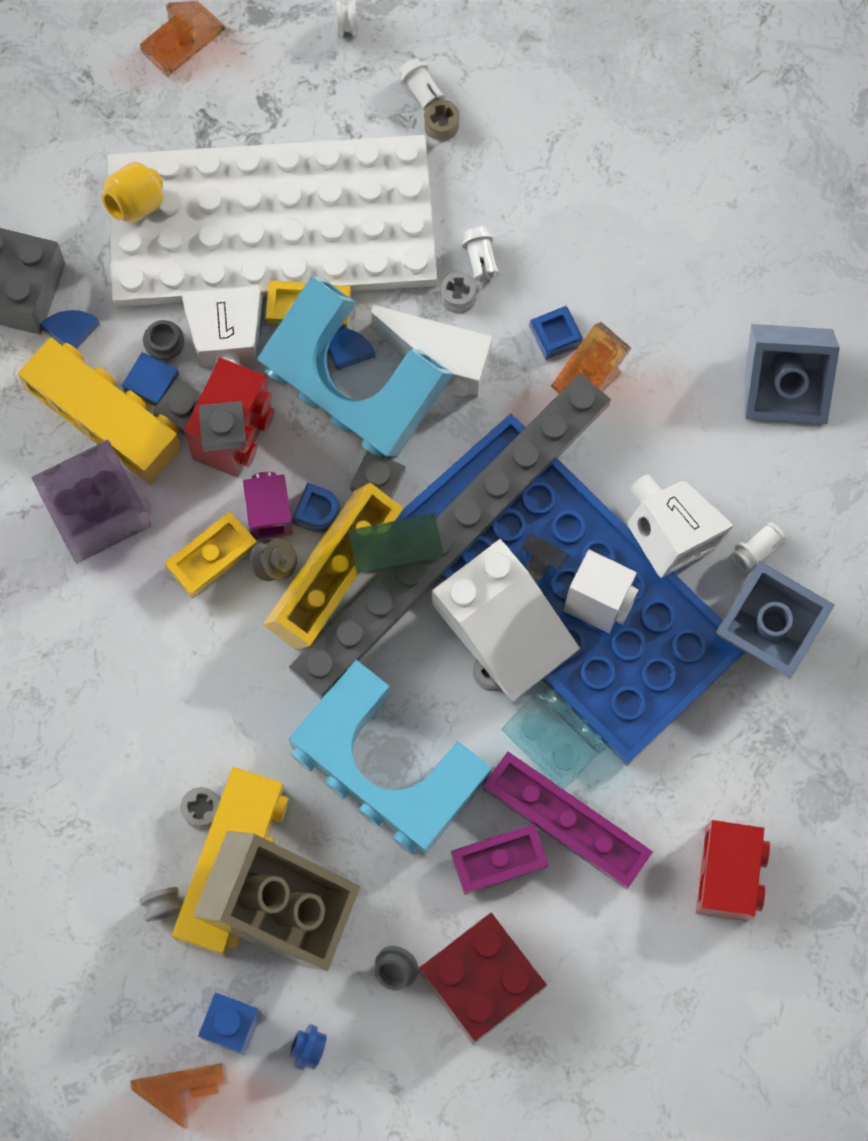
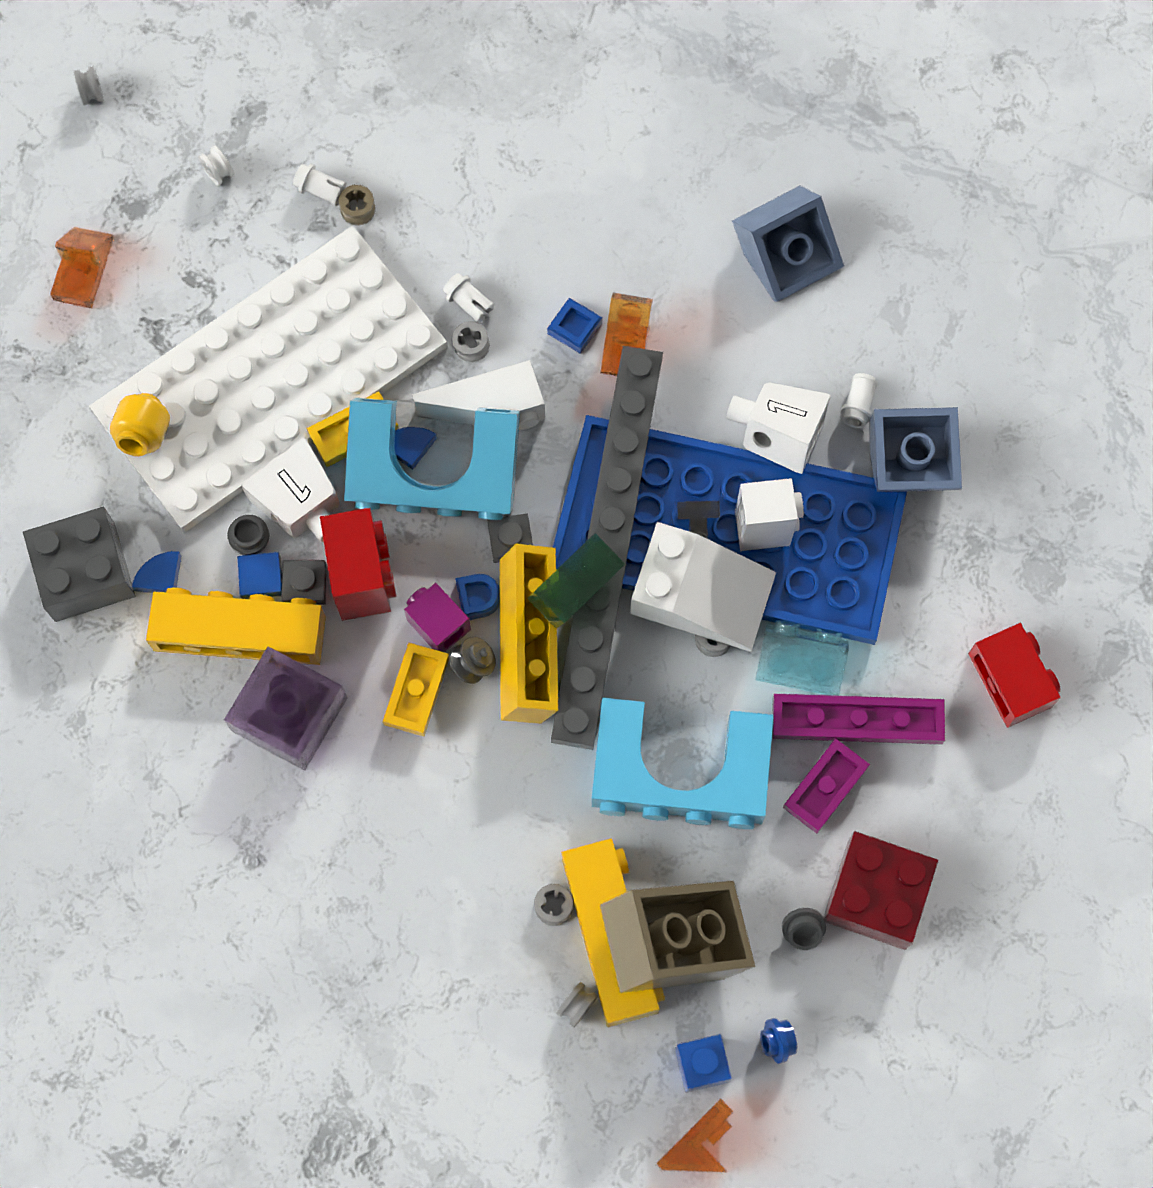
camera: 30 degrees left, 0 degrees up
(222, 426) = (364, 572): dark grey plate -> none

